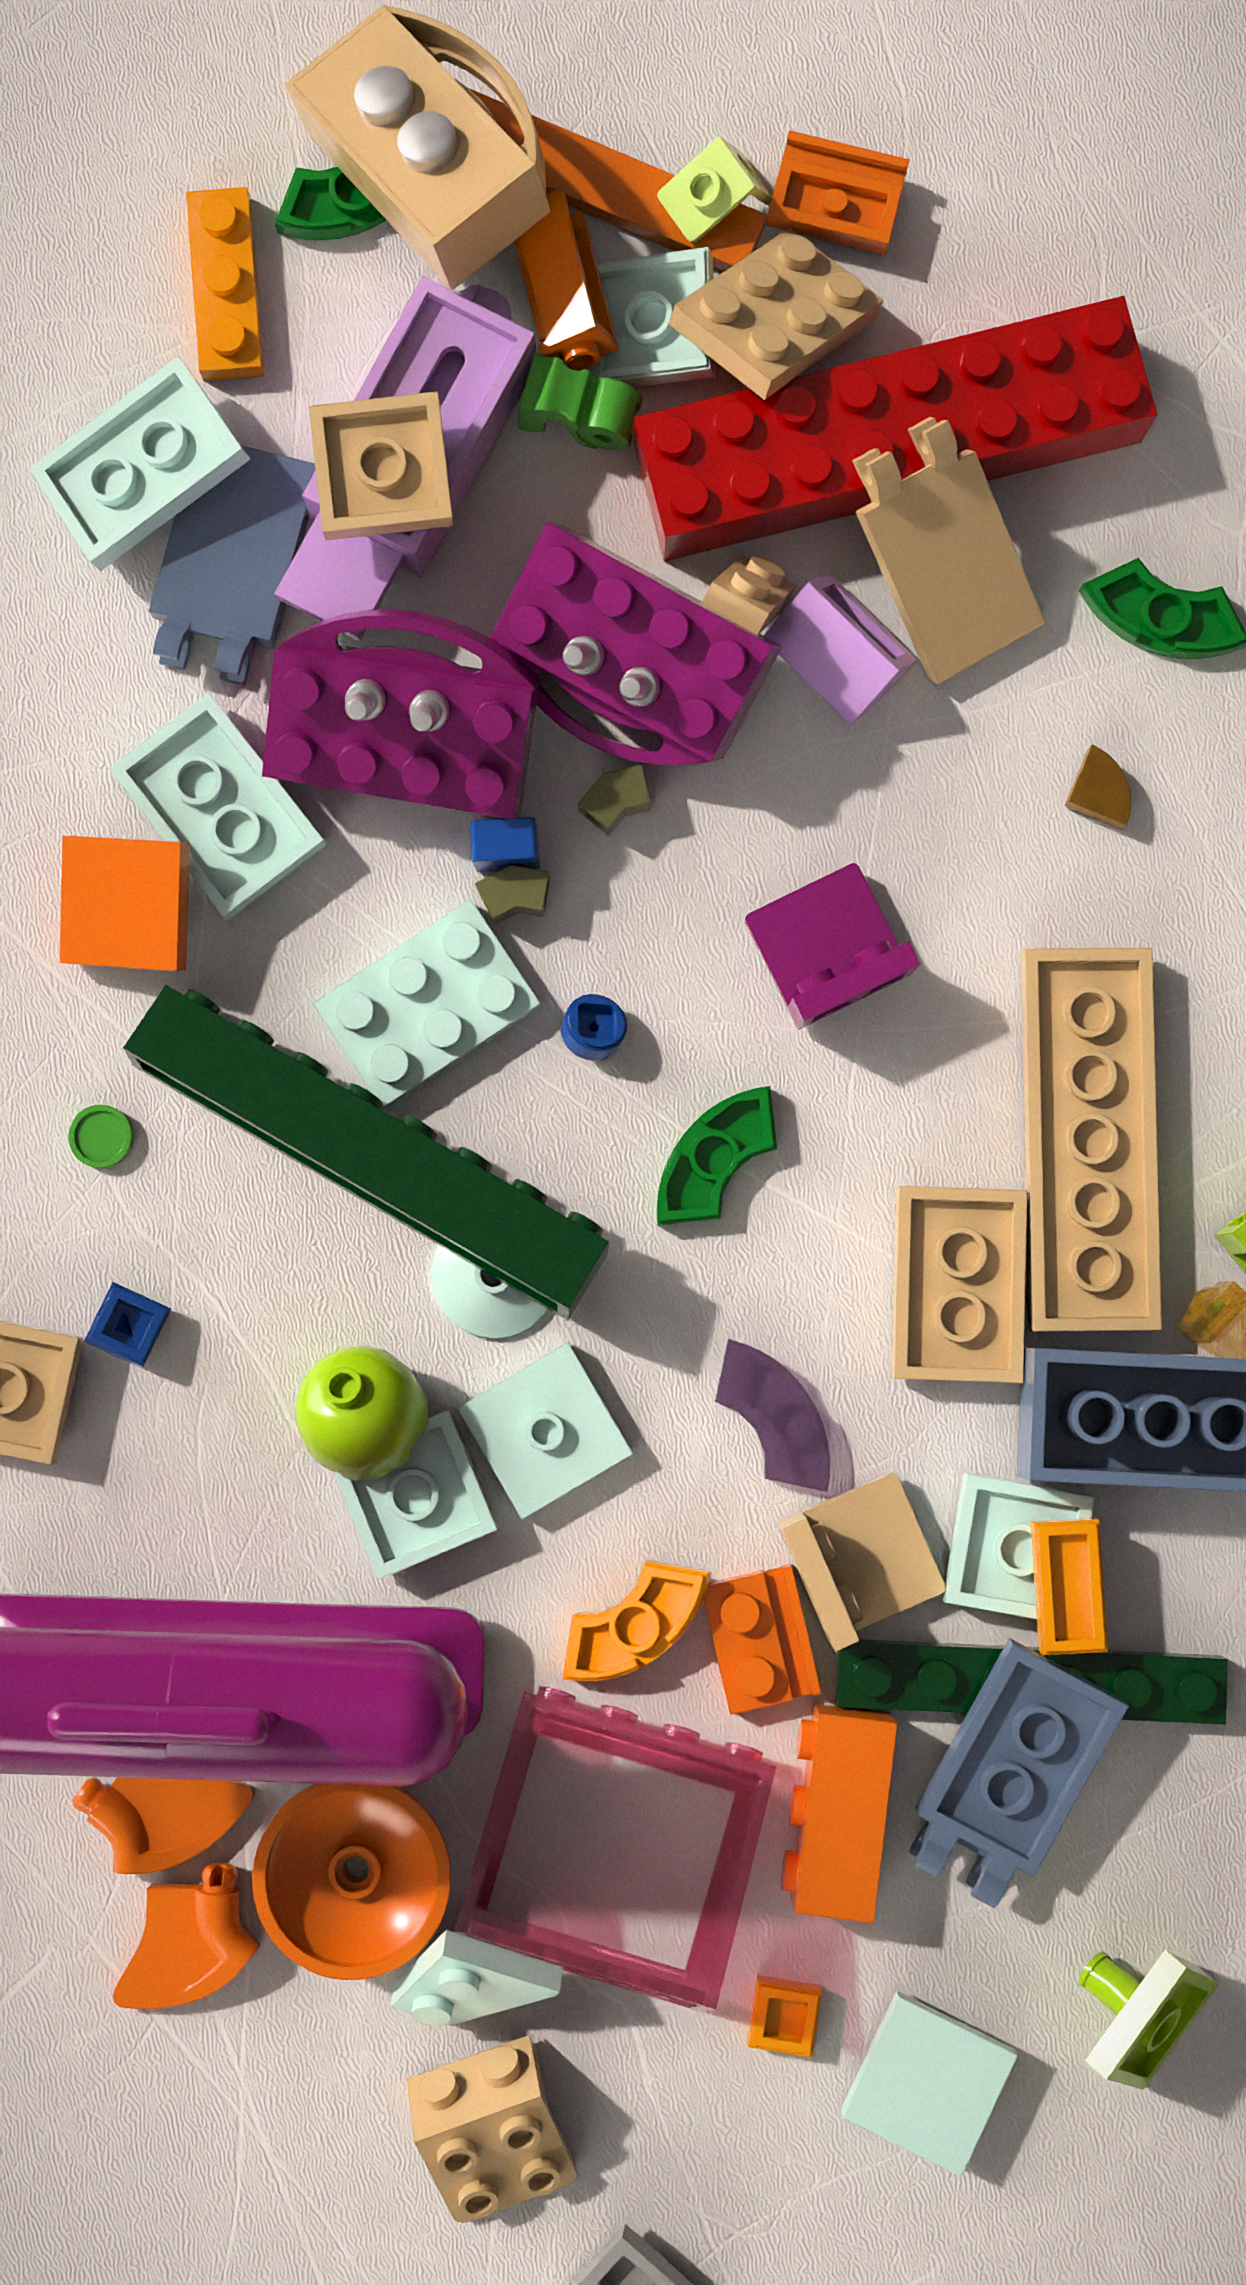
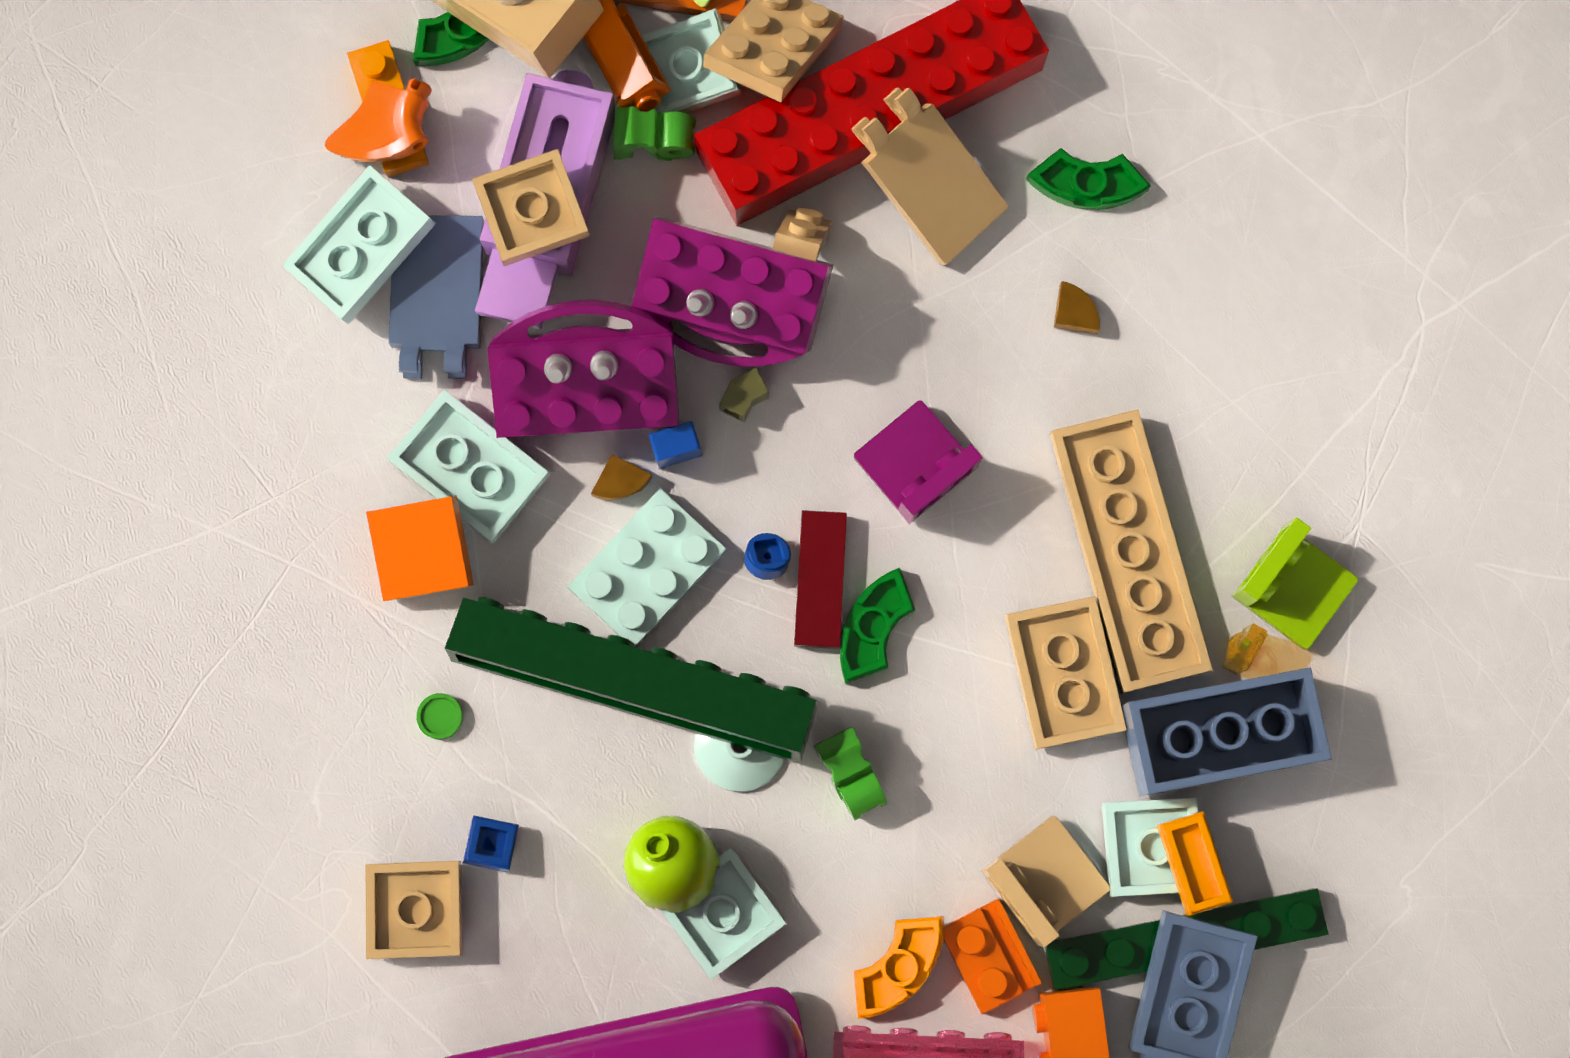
camera: 15 degrees left, 5 degrees down
(212, 304) = (384, 125): none -> orange arm
(419, 875) = (620, 480): none -> pearl gold tile
(514, 892) = (689, 475): olive piece -> none
(545, 1430) = (802, 846): light aqua plate -> none
(634, 1348) = (851, 772): none -> bright green leg
(658, 1075) = (820, 579): none -> dark red tile
(780, 1414) = (963, 794): clear purple tile -> none
(840, 648) = (872, 256): lavender brick -> none

